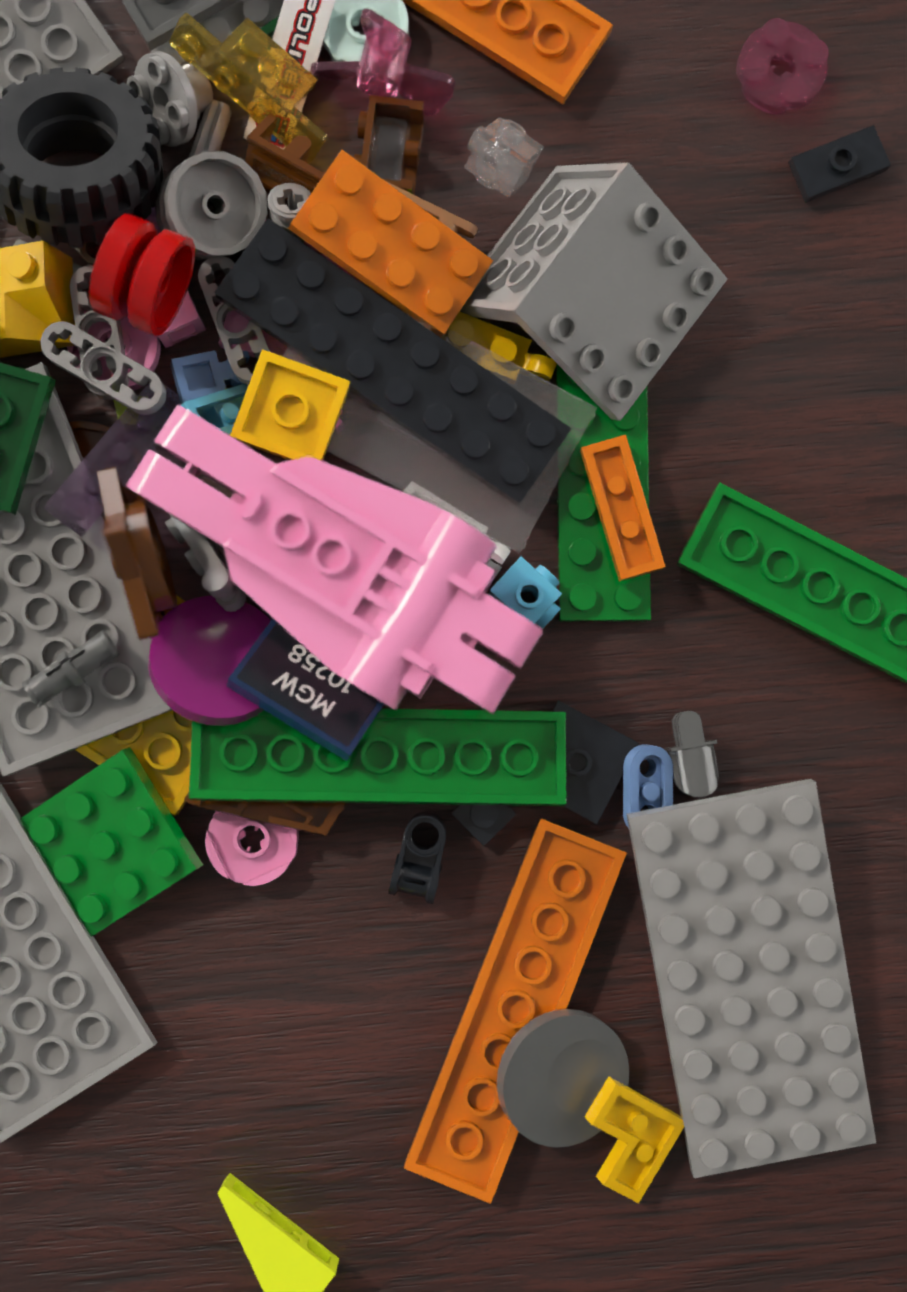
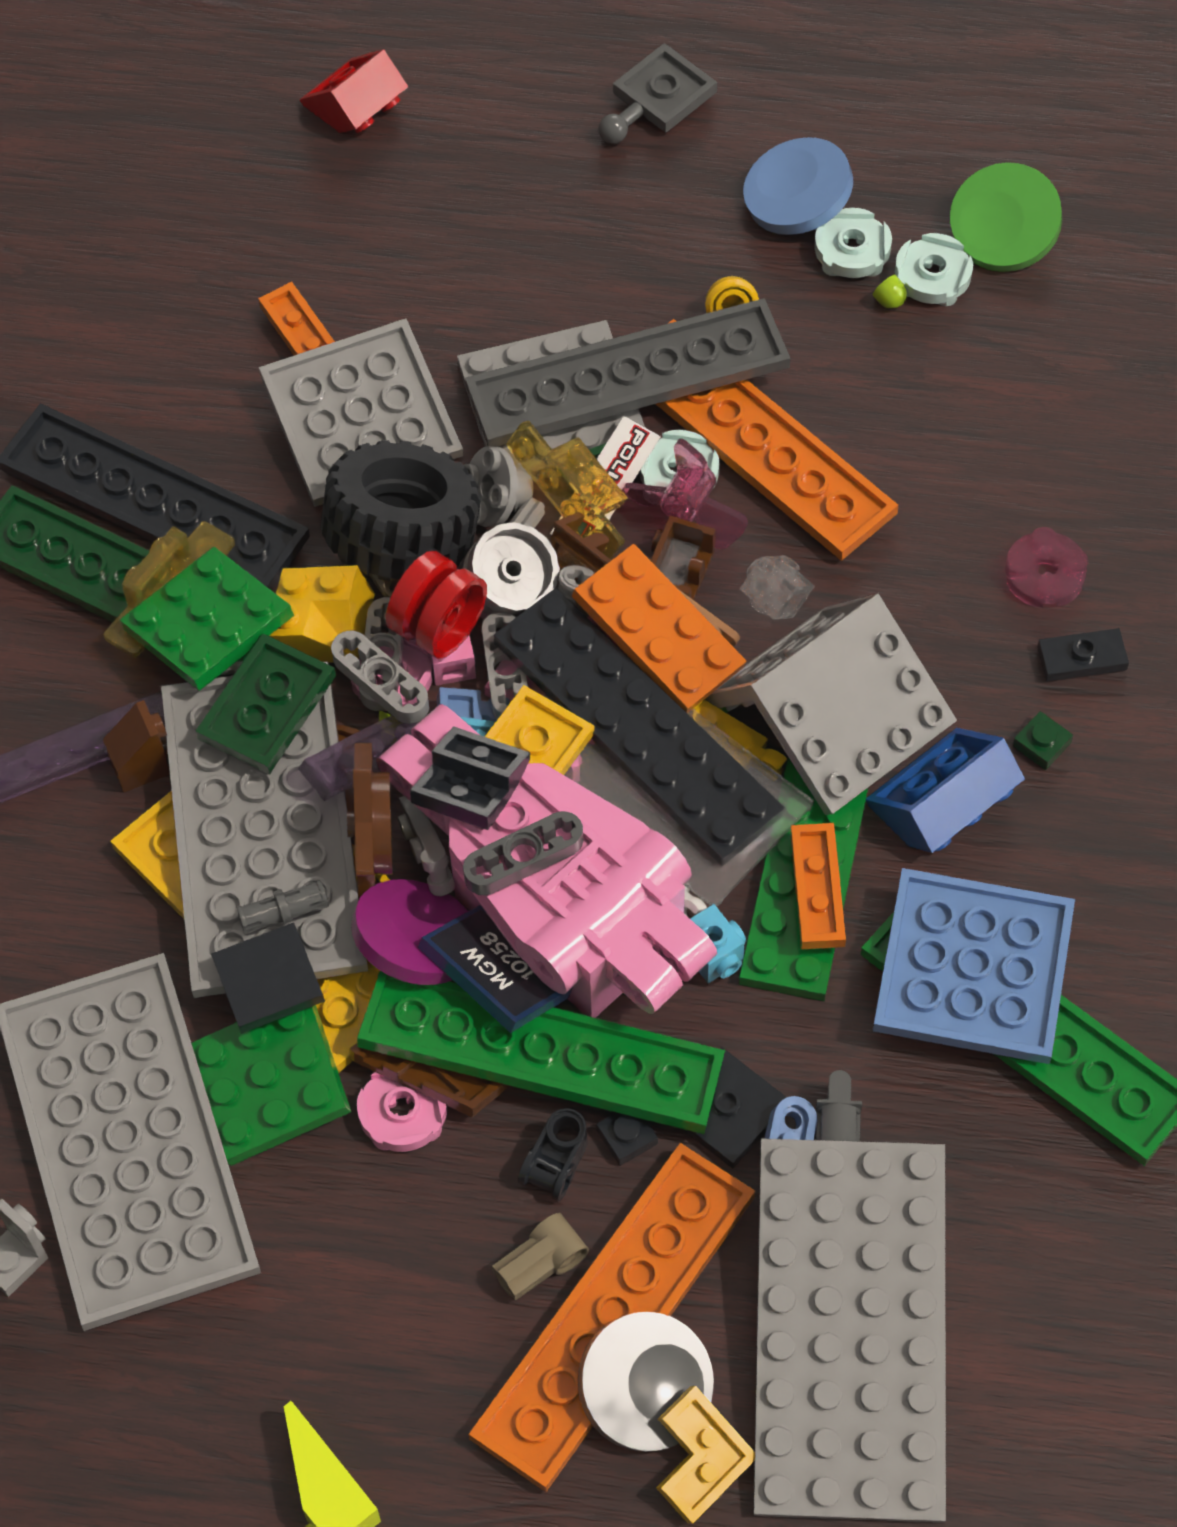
camera: 15 degrees right, 25 degrees down
(77, 750) = (267, 977): none -> black tile
(234, 498) = (470, 777): none -> black slope
(279, 594) = (530, 835): none -> dark grey beam
(435, 960) = (550, 1249): none -> dark tan piece
(730, 357) = (947, 788): none -> blue slope
(801, 562) = (975, 966): none -> medium blue plate
(815, 275) = (1043, 740): none -> dark green plate

